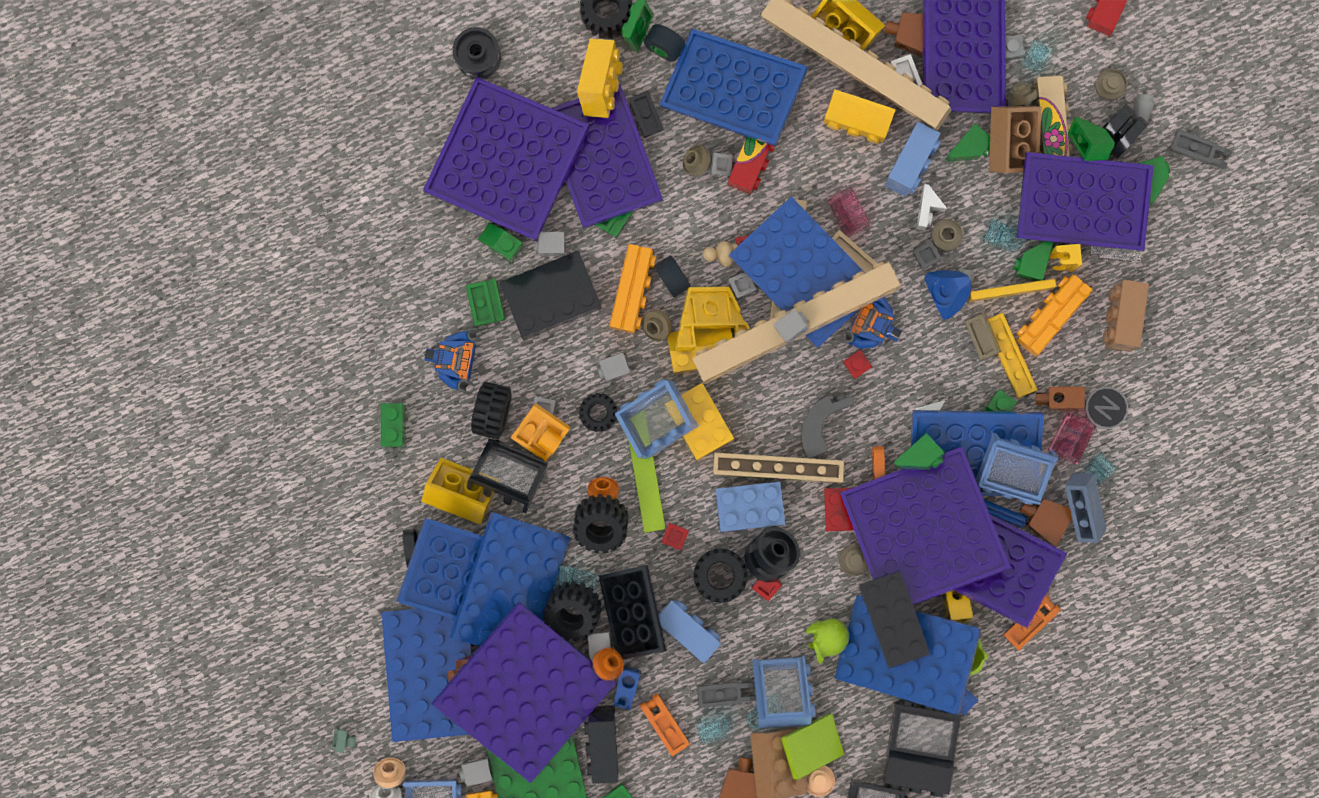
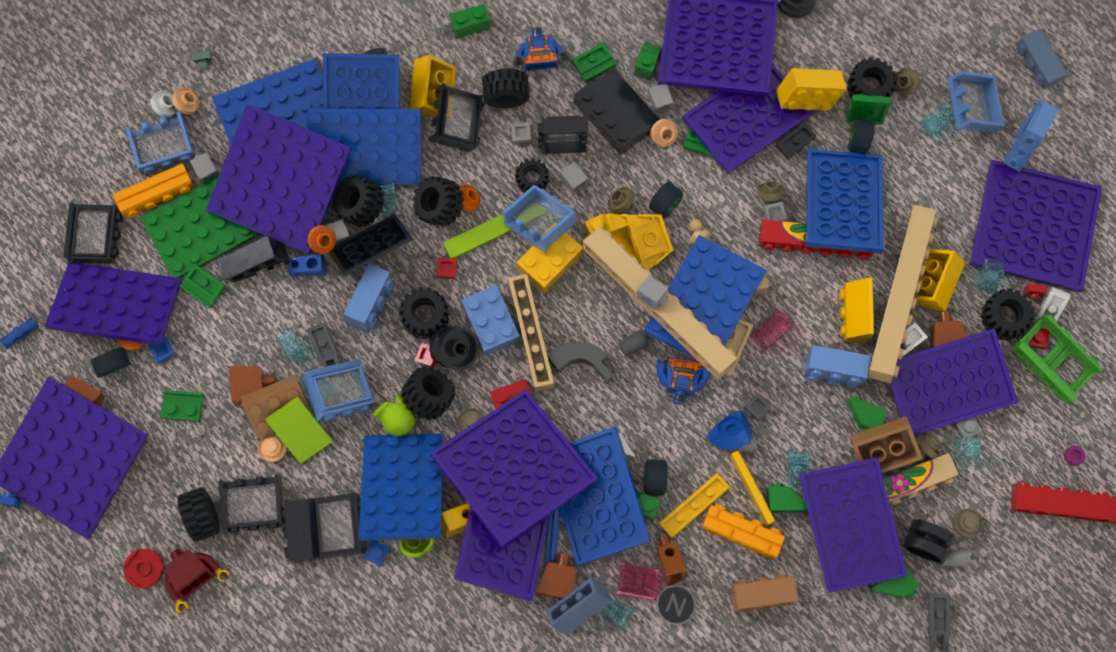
camera: 65 degrees right, 10 degrees down
(540, 432) = (500, 134): light orange plate -> none
(567, 363) = (563, 134): none -> black window
(593, 253) = (664, 132): none -> light nougat plate
(631, 289) = (644, 172): light orange brick -> none
(665, 725) = (284, 306): orange plate -> none
(742, 285) = (676, 259): light grey plate -> none
(811, 583) = (428, 393): none -> black tyre
(819, 362) = (633, 342): none -> dark grey piece
(857, 364) = (642, 376): red plate -> none
(878, 461) = (564, 417): orange beam -> none
(894, 619) = (427, 460): black plate -> none
(921, 455) = (578, 443): green slope -> none
(928, 201) = (803, 392): white slope -> none
(947, 235) = (781, 417): dark tan plate -> none
(973, 386) = (655, 477): none -> black wheel
(982, 336) = (703, 476): dark tan tile -> none
(1015, 470) = (592, 533): window -> none
(1019, 635) = (462, 593): orange plate -> none
(1068, 256) = (799, 523): yellow hinge -> none
(1090, 140) = (909, 512): green slope -> none

